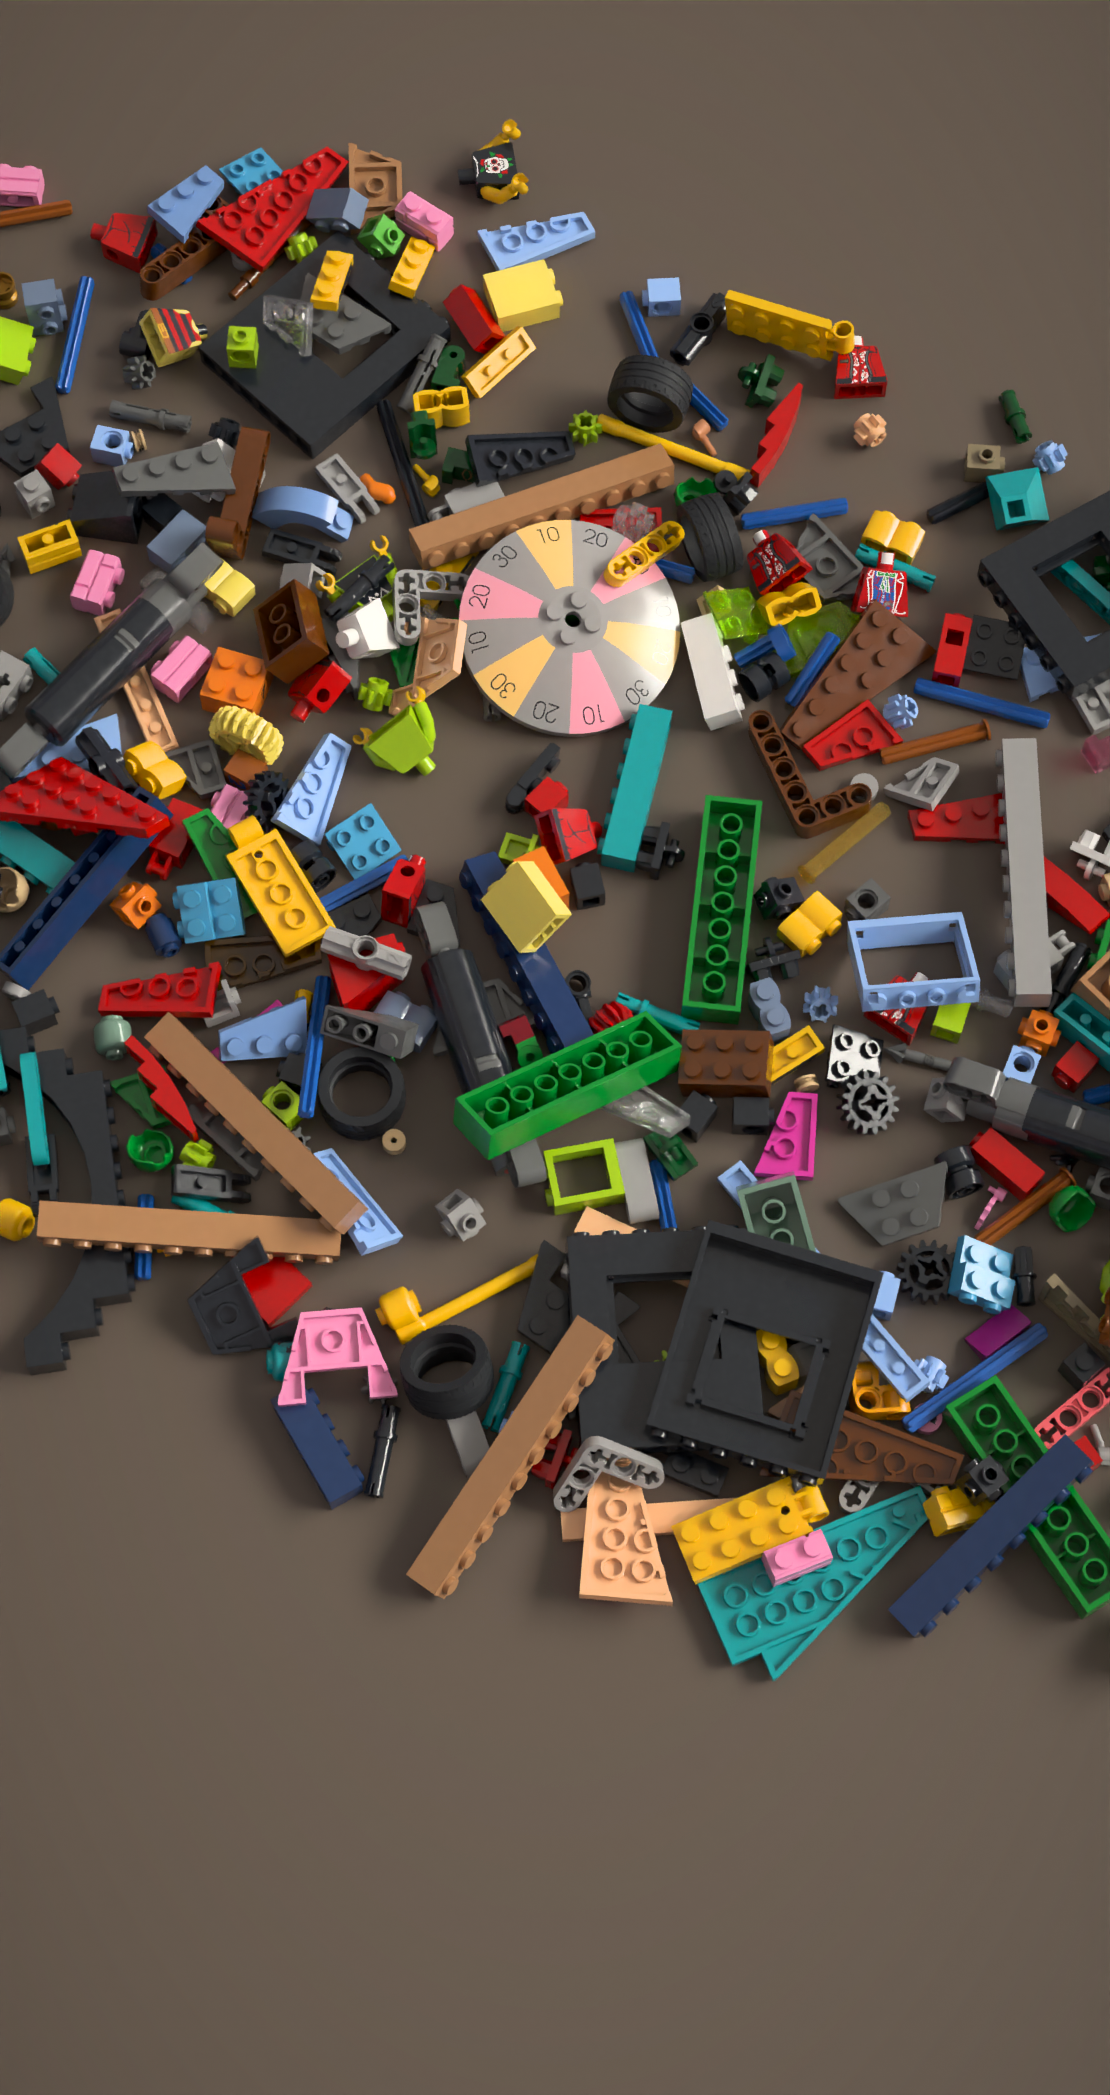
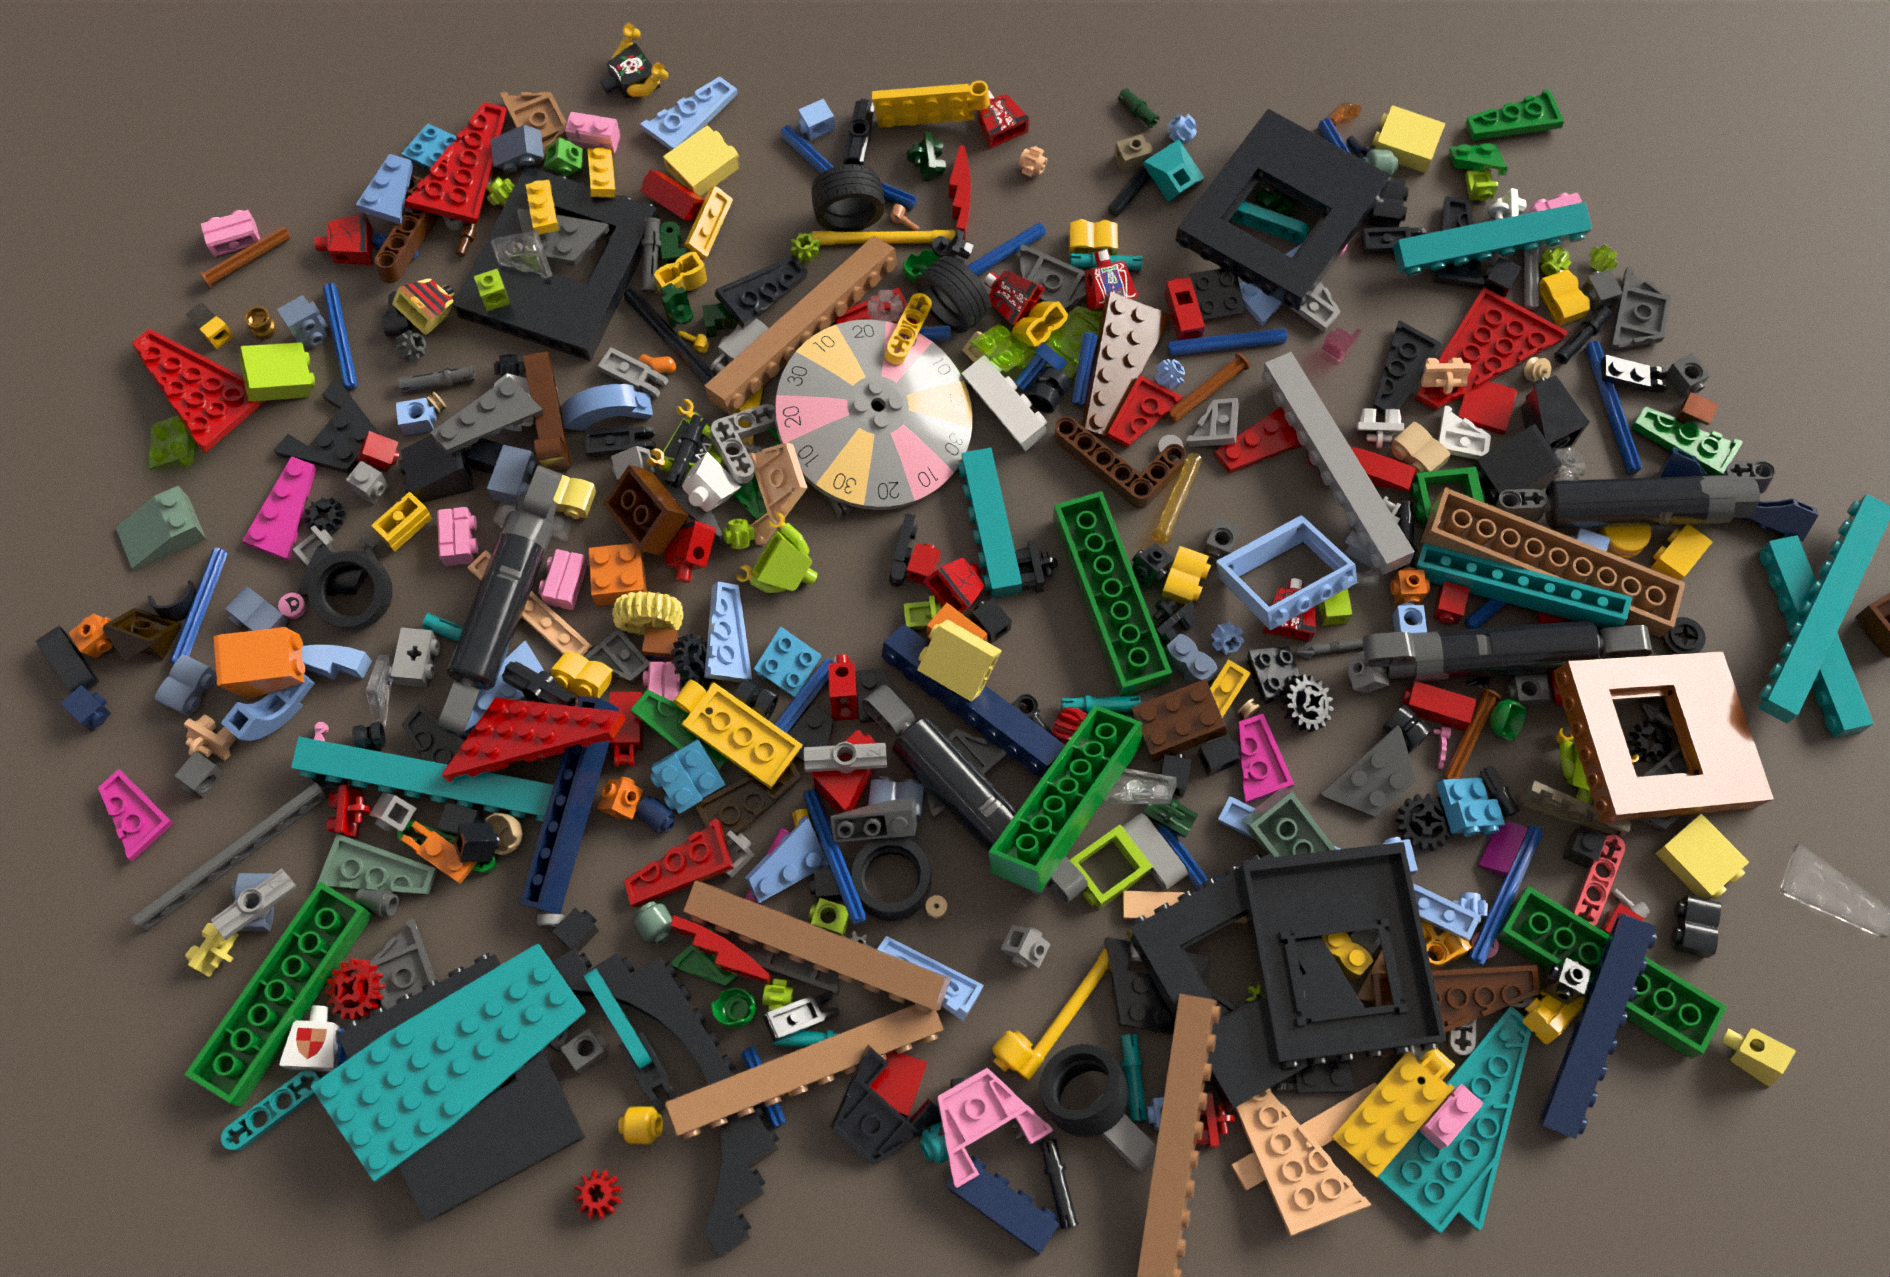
camera: 25 degrees left, 0 degrees up
(523, 1039) = (1009, 777): leg -> none
(597, 1463) = (1248, 1108): light grey beam -> none

